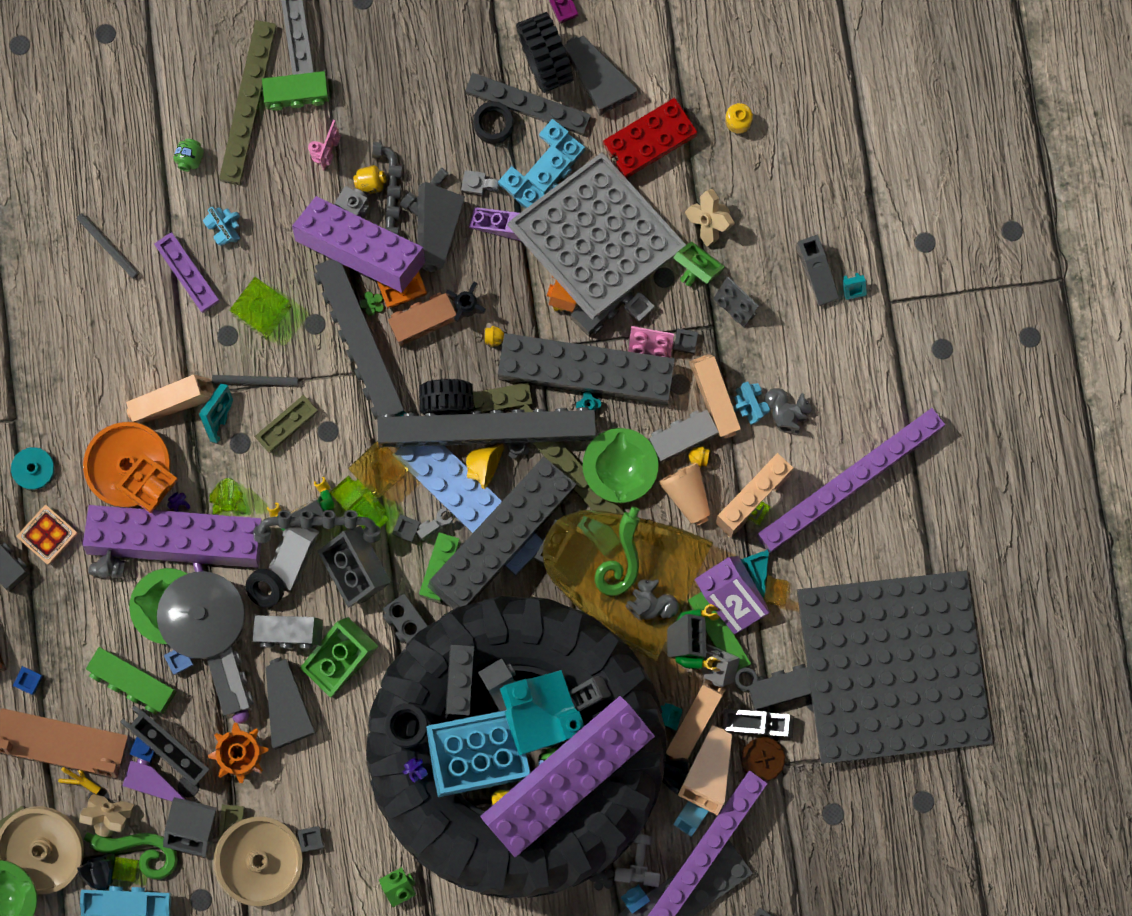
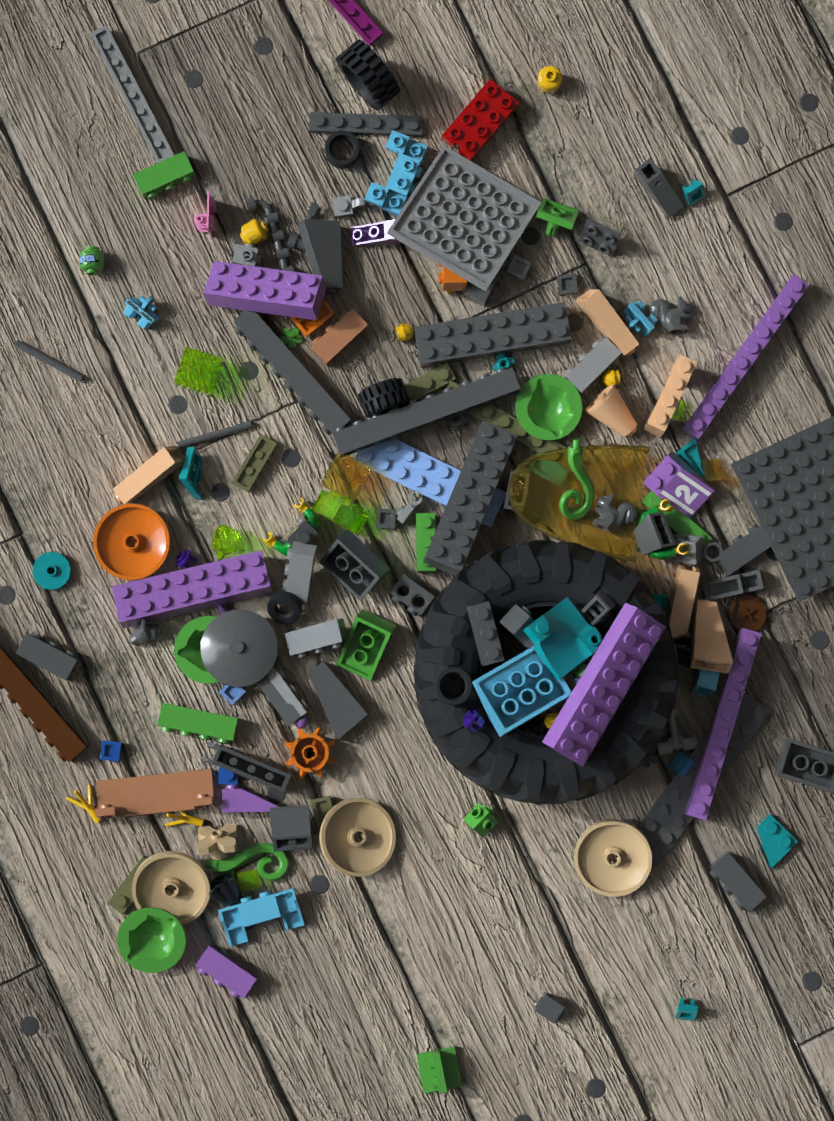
camera: 20 degrees left, 5 degrees up
(47, 535) = (84, 623): tile -> none
(146, 483) = (155, 552): orange plate -> none
(186, 272) = (125, 362): medium lavender plate -> none
(247, 102) = (126, 198): olive plate -> none
(310, 839) = (394, 804): dark grey plate -> none
(371, 532) = (321, 533): dark grey bar -> none
(463, 298) = (375, 307): black brick -> none
(483, 463) = (432, 443): yellow hat -> none
(599, 77) = (418, 81): dark grey slope -> none
(650, 342) = (539, 294): bright pink hinge -> none
(711, 216) = (555, 171): tan plant -> none

